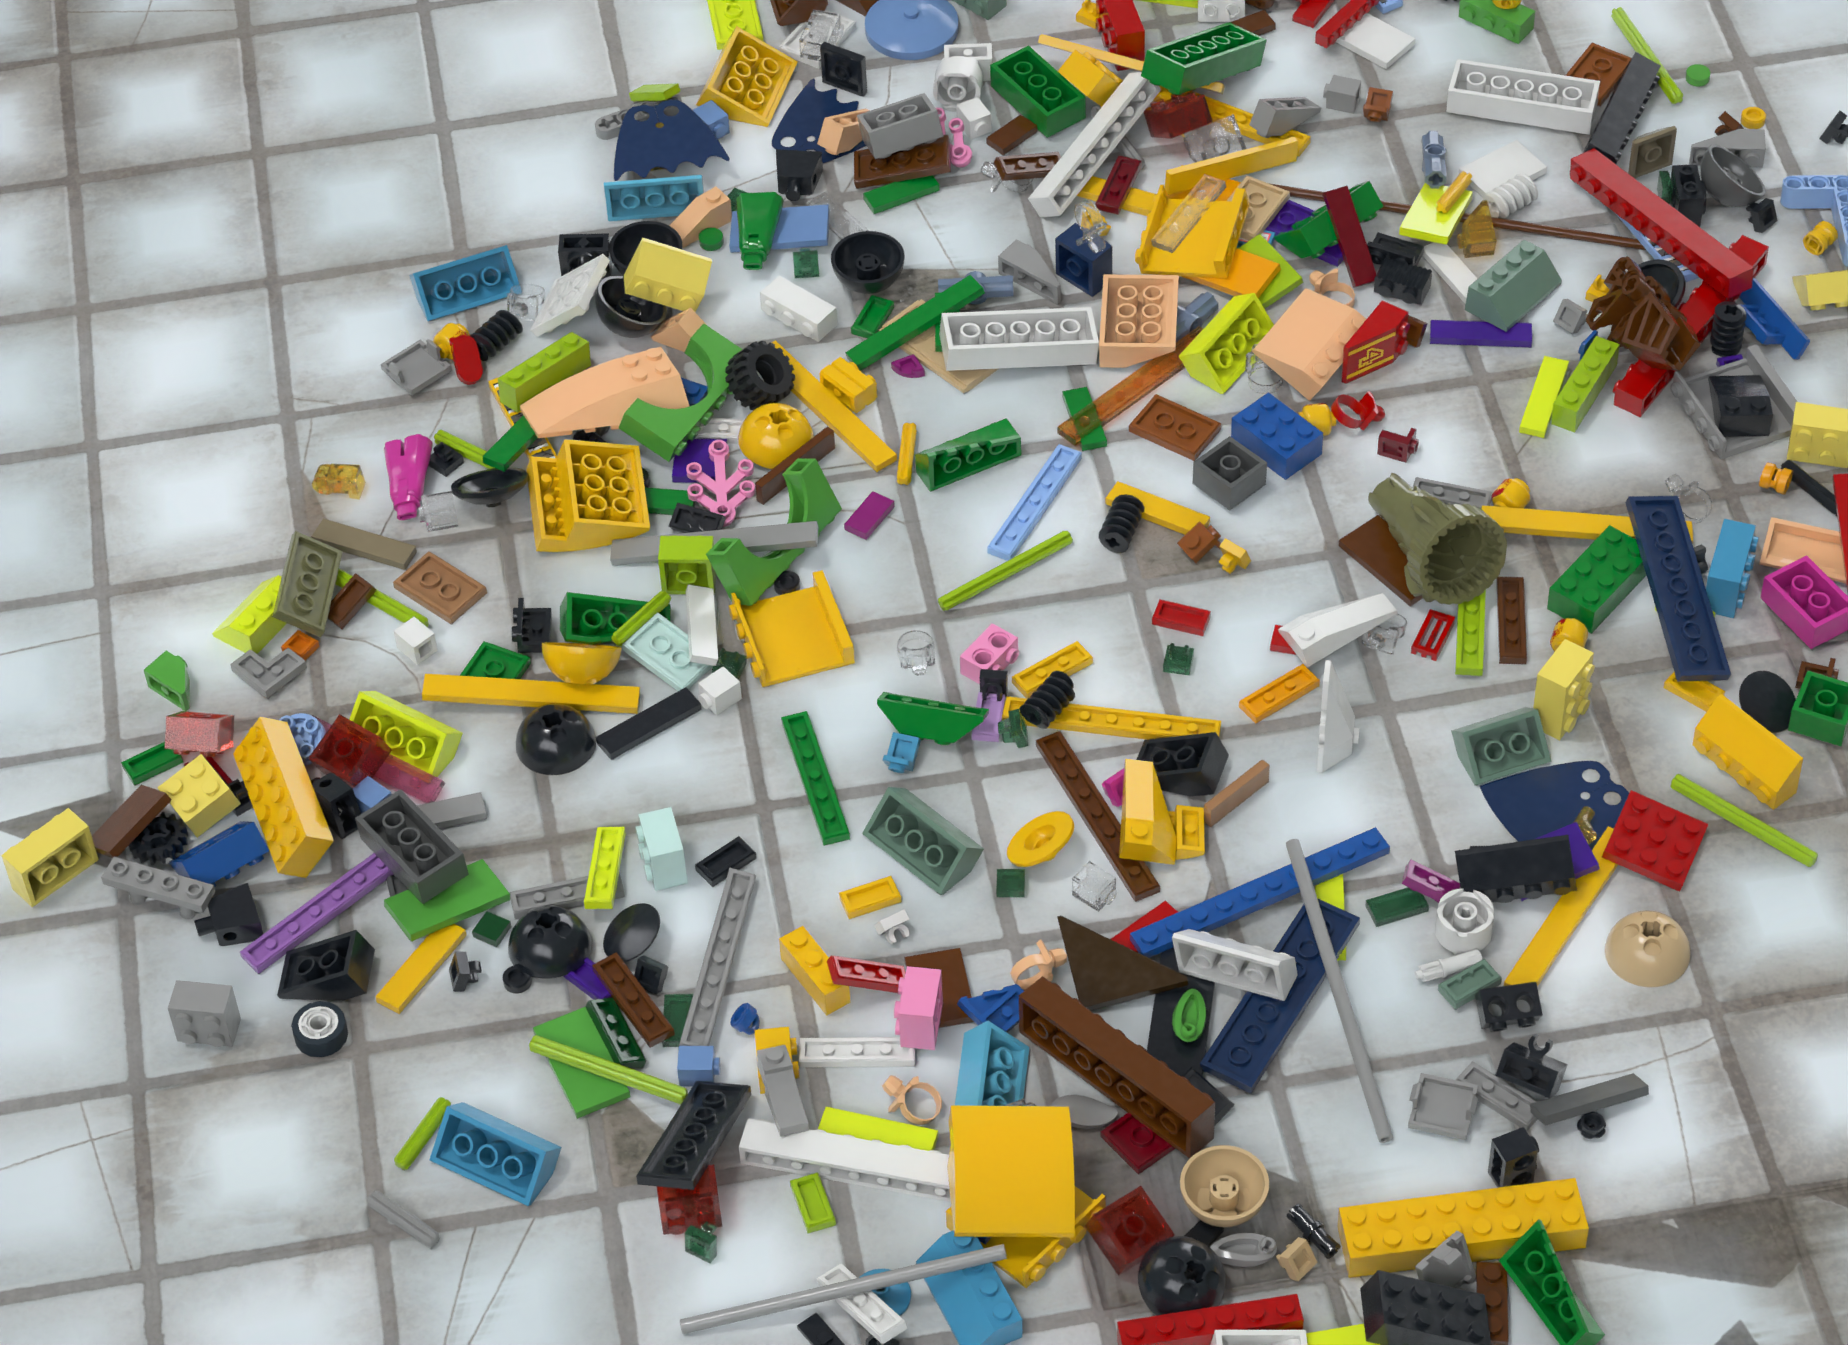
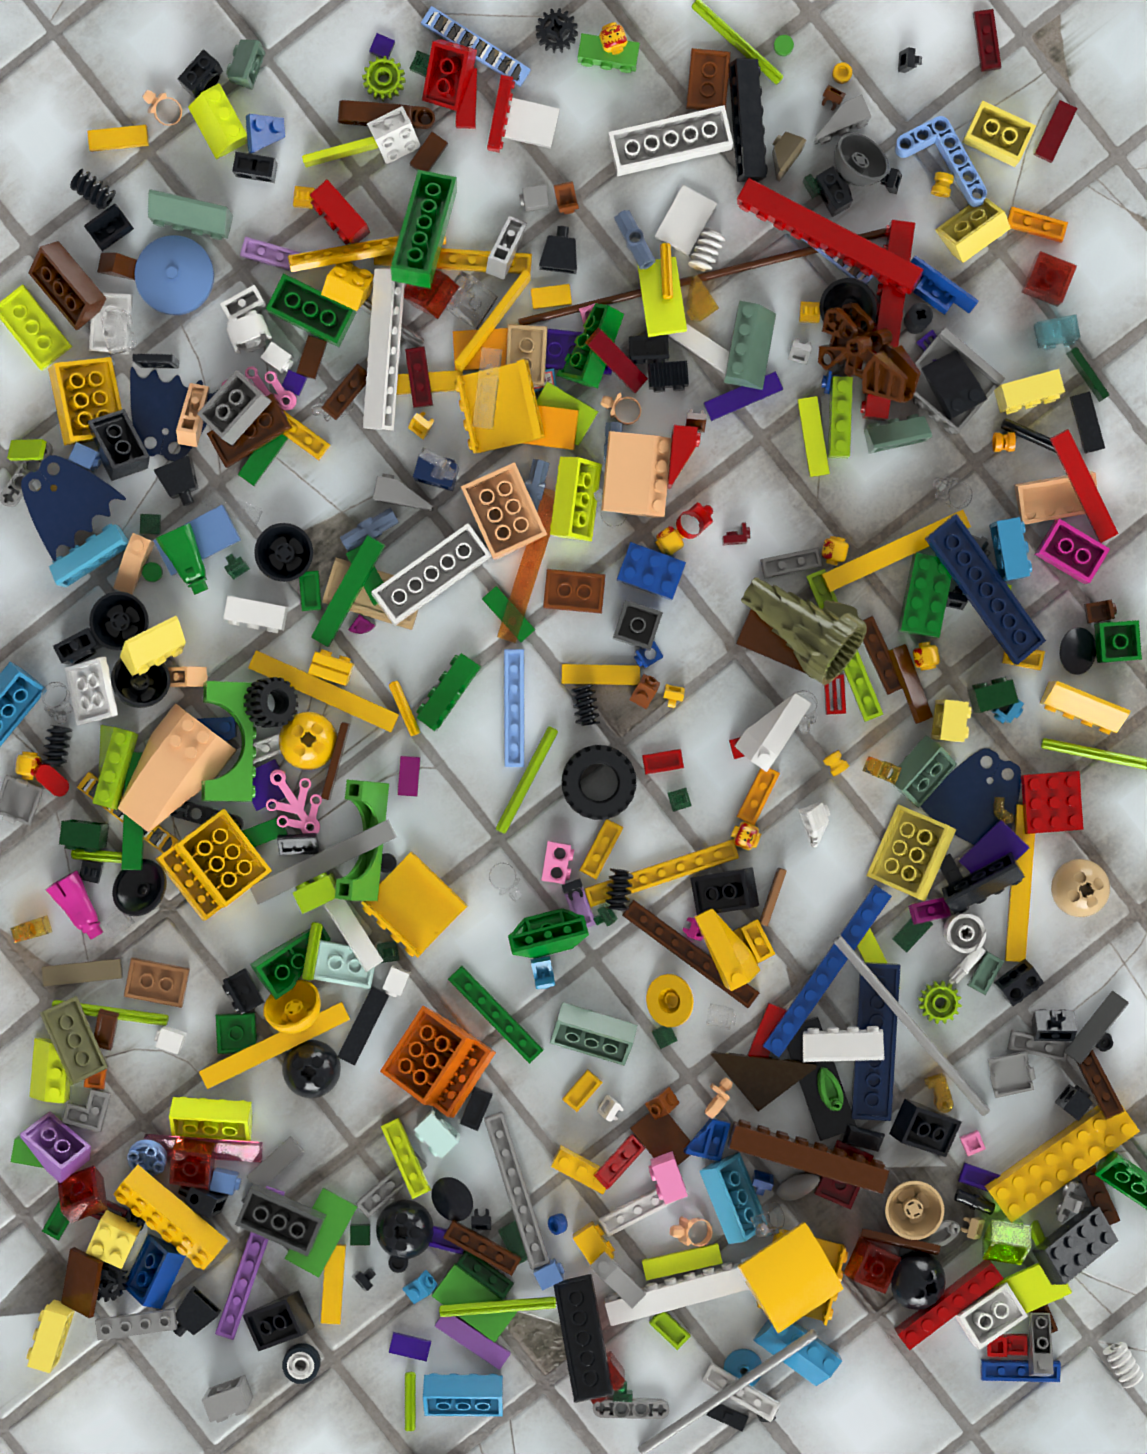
camera: 30 degrees left, 40 degrees up
(207, 680) = (56, 1146): none -> medium lavender slope
(466, 411) = (84, 834): none -> dark green brick
(466, 1074) = (410, 1346): none -> dark purple tile
(524, 1010) = (420, 1287): none -> dark azure bracket
(551, 1101) = (473, 1340): none -> medium lavender tile
(698, 1273) = (630, 1411): none -> light grey beam
(715, 788) = (437, 1062): none -> orange slope
(753, 121) = (118, 445): none -> black slope
(958, 194) = (306, 438): none -> yellow tile
(963, 941) = (662, 1103): none -> dark orange bracket
(980, 147) = (294, 382): none -> dark purple tile
(1017, 38) = (266, 253): none -> lavender tile
(1038, 1085) = (762, 1182): none -> blue tile
(1094, 619) = (599, 755): none -> black tyre
(1189, 1223) = (900, 1242): none -> reddish brown tile
(1217, 512) = (642, 660): none -> blue bracket
(1239, 722) = (746, 836): none -> yellow head
(1293, 1117) = (924, 1128): none -> black slope
(1310, 177) = (551, 296): none -> yellow tile
(1325, 1206) = (976, 1176): none -> dark purple tile
(1330, 1279) = (1006, 1242): none -> clear neon green brick
(1335, 1094) = (943, 1098): none -> clear yellow leg
(1341, 145) = (559, 253): none -> black torso
(1348, 1167) = (972, 1143): none -> bright pink tile
(1390, 1001) = (950, 1004): none -> lime gear
(1395, 694) = (835, 762): none -> yellow wheel
(1444, 819) = (911, 852): none -> light yellow slope
(1449, 715) = (881, 769): none -> clear yellow leg
(1533, 650) = (910, 683): none -> reddish brown tile
(1559, 1154) = (1100, 1086): none -> reddish brown tile
(1632, 696) = (992, 696): none -> dark green brick
(1636, 598) = (956, 599): none -> black tile
(1645, 425) = (897, 433): none -> sand green slope
(1646, 731) = (1012, 711): none -> dark azure bracket

